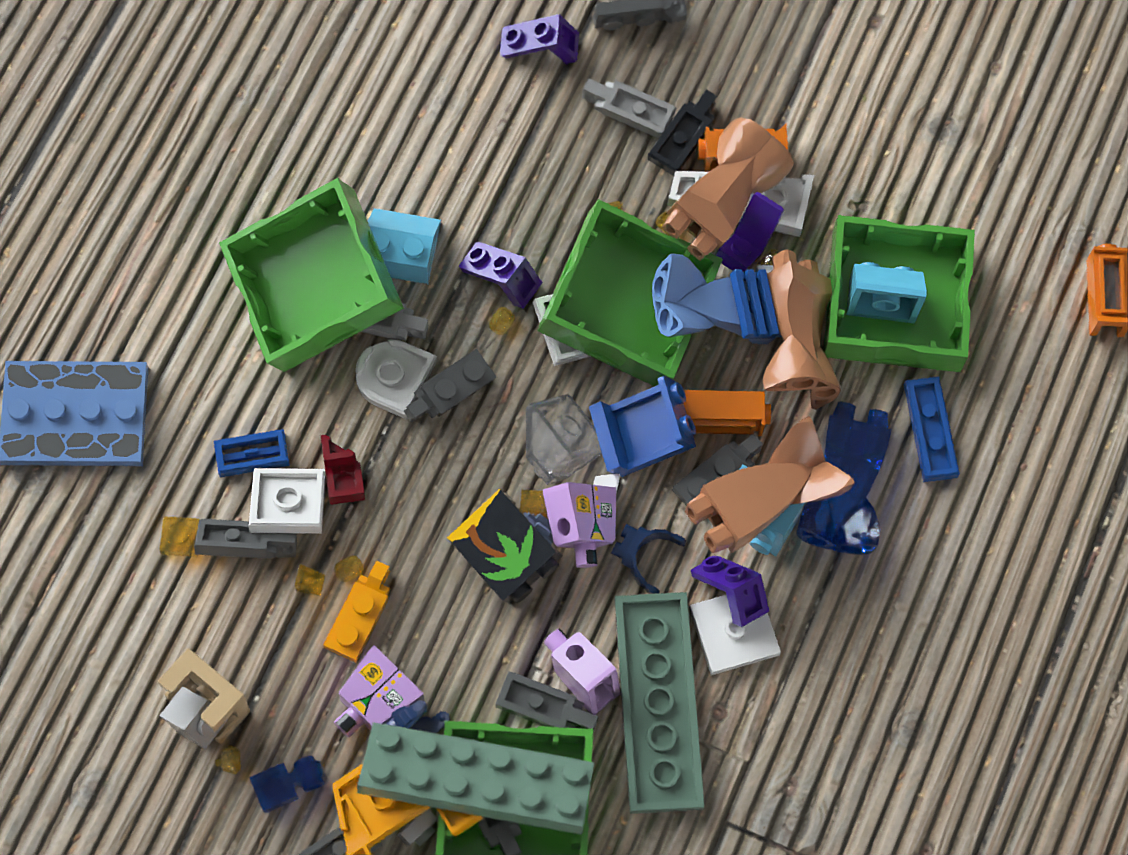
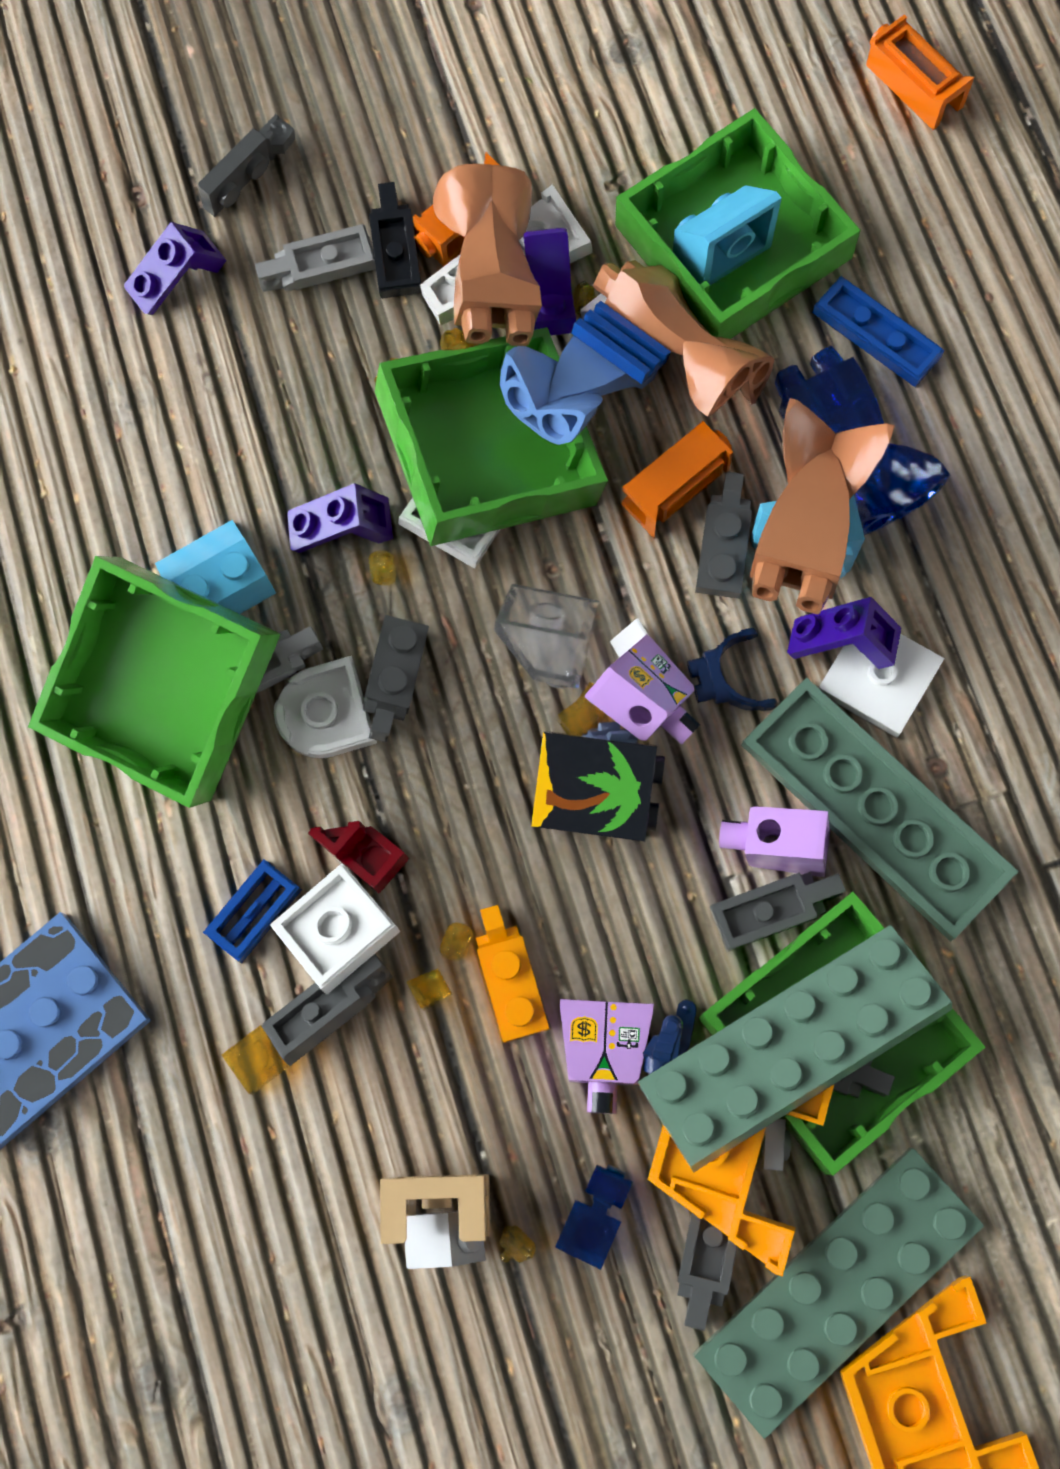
camera: 30 degrees left, 5 degrees up
(644, 428) = (622, 551): blue panel -> none

